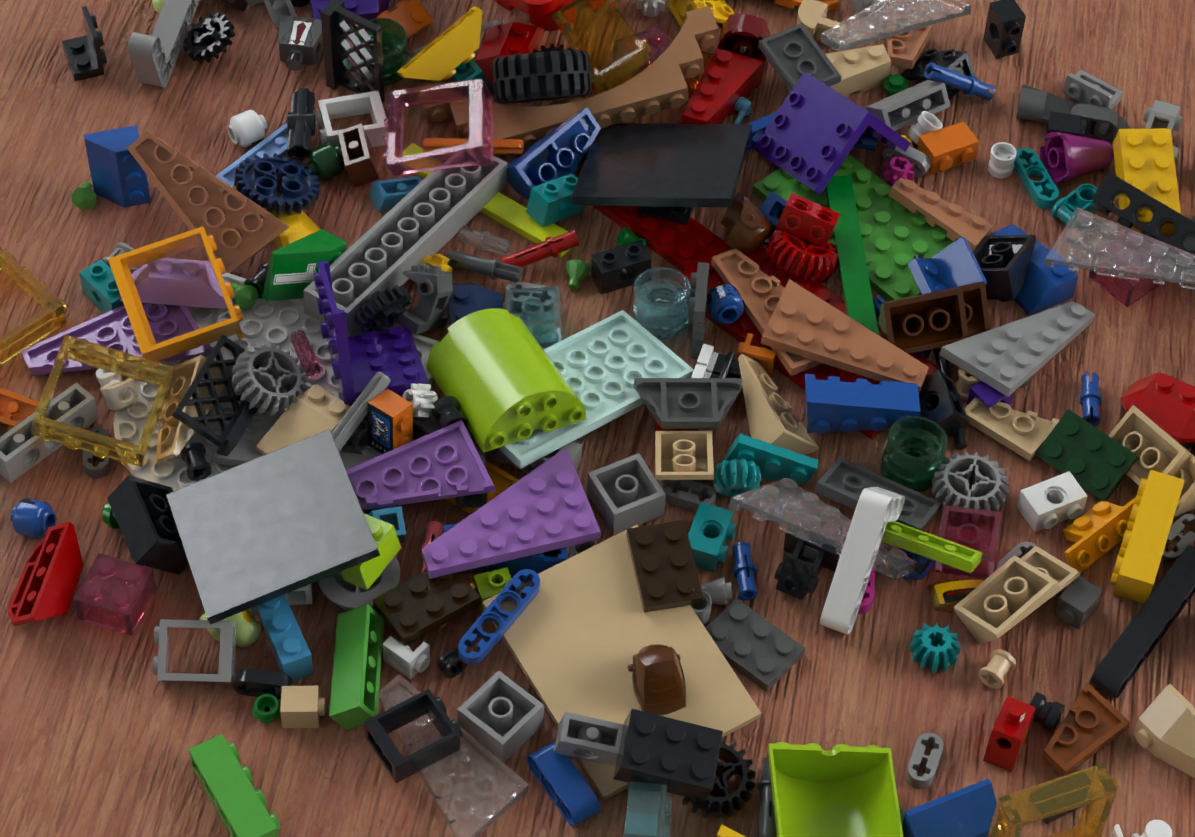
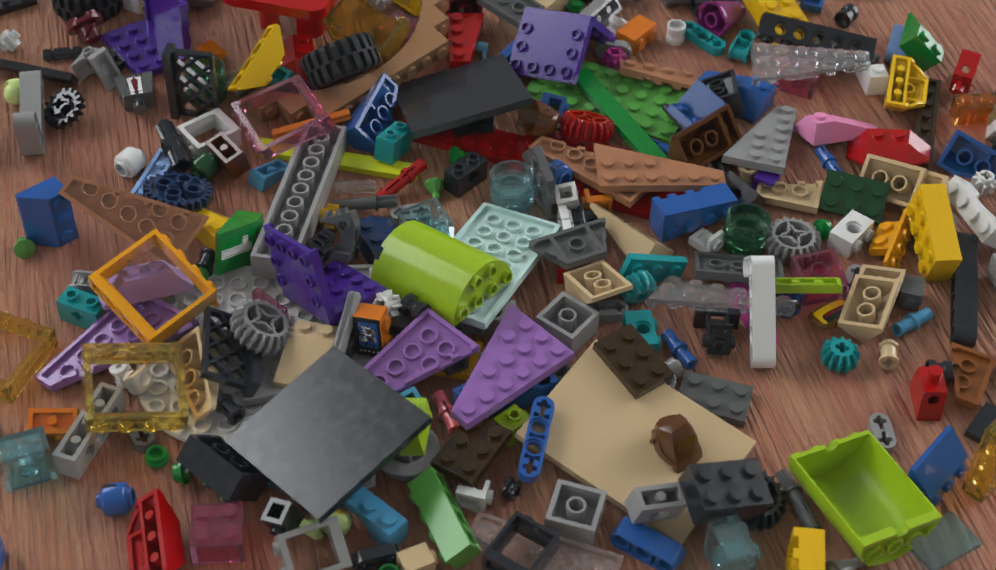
camera: 25 degrees left, 5 degrees down
(99, 486) = (156, 456): none -> green plate
(183, 600) = (281, 516): none -> black brick
(723, 335) = (567, 195): none -> white brick
(808, 220) = (582, 102): red brick -> none
(863, 449) = (706, 241): none -> white bracket
(1019, 480) = (824, 227): none -> green plate
(1056, 639) = (912, 321): none -> dark azure pin
(1117, 356) = (827, 128): none -> bright pink wedge

